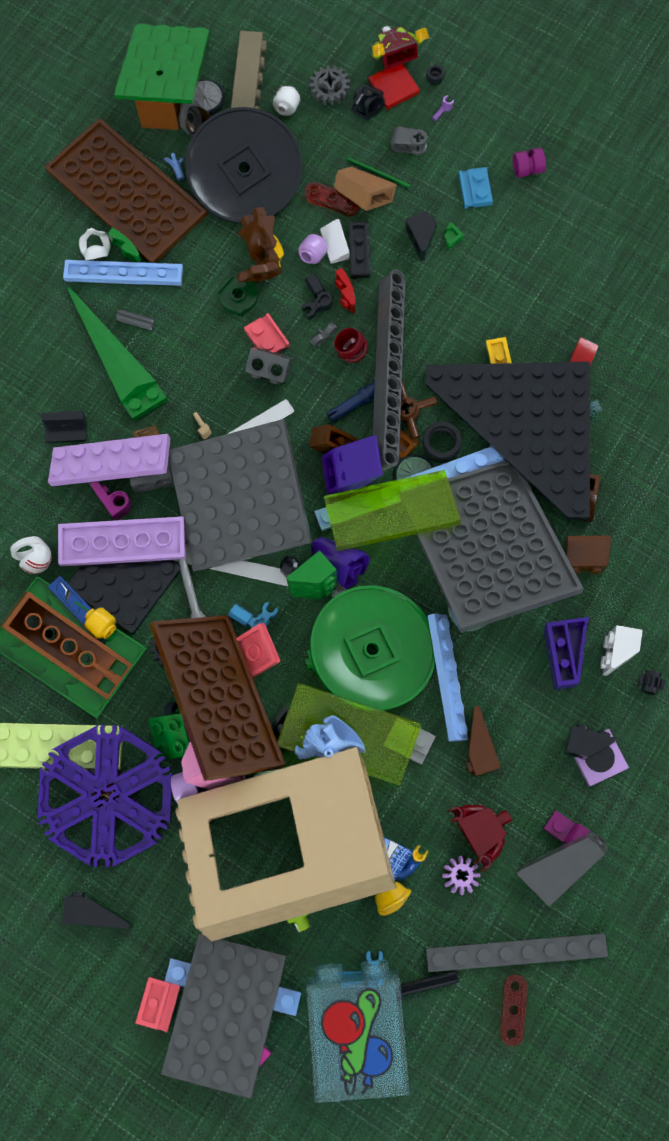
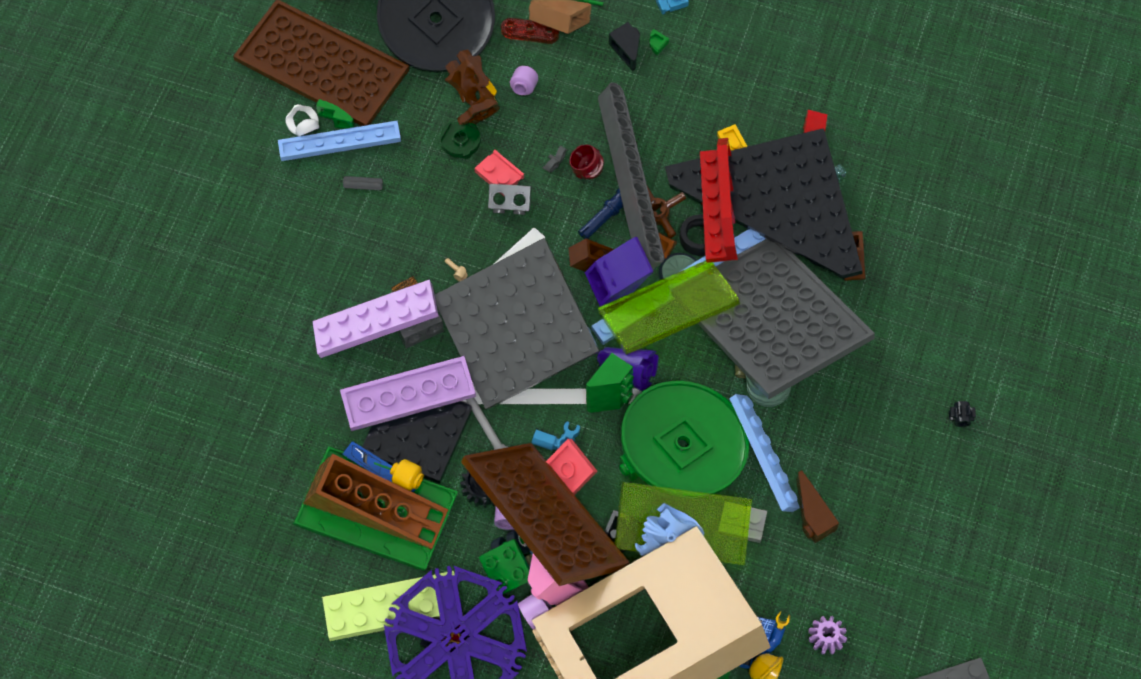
camera: 15 degrees left, 10 degrees down
(33, 560) = (324, 430): white helmet -> none
(64, 426) = (318, 298): black panel -> none
(111, 500) = (383, 359): magenta plate -> none
(131, 381) = (374, 241): green plate -> none
(176, 165) = (365, 29): medium blue bar -> none
(289, 565) = (578, 383): black tile -> none
(323, 299) = (545, 125): black bar -> none
(335, 242) = (547, 72): white slope -> none
(347, 293) = (570, 116): red slope -> none
(359, 250) = (569, 73): black tile -> none
(463, 419) = (717, 203): none -> red plate
(482, 831) = (836, 587): dark red torso -> none
(560, 868) = (921, 604): dark grey slope -> none
(563, 828) = (921, 573): magenta plate -> none
(565, 650) = (871, 401): dark purple wedge -> none
(586, 743) = (915, 482): black slope -> none
(588, 553) = (870, 304): reddish brown slope -> none
(602, 764) = (930, 496): lavender tile -> none
(620, 647) = (923, 386): white slope -> none

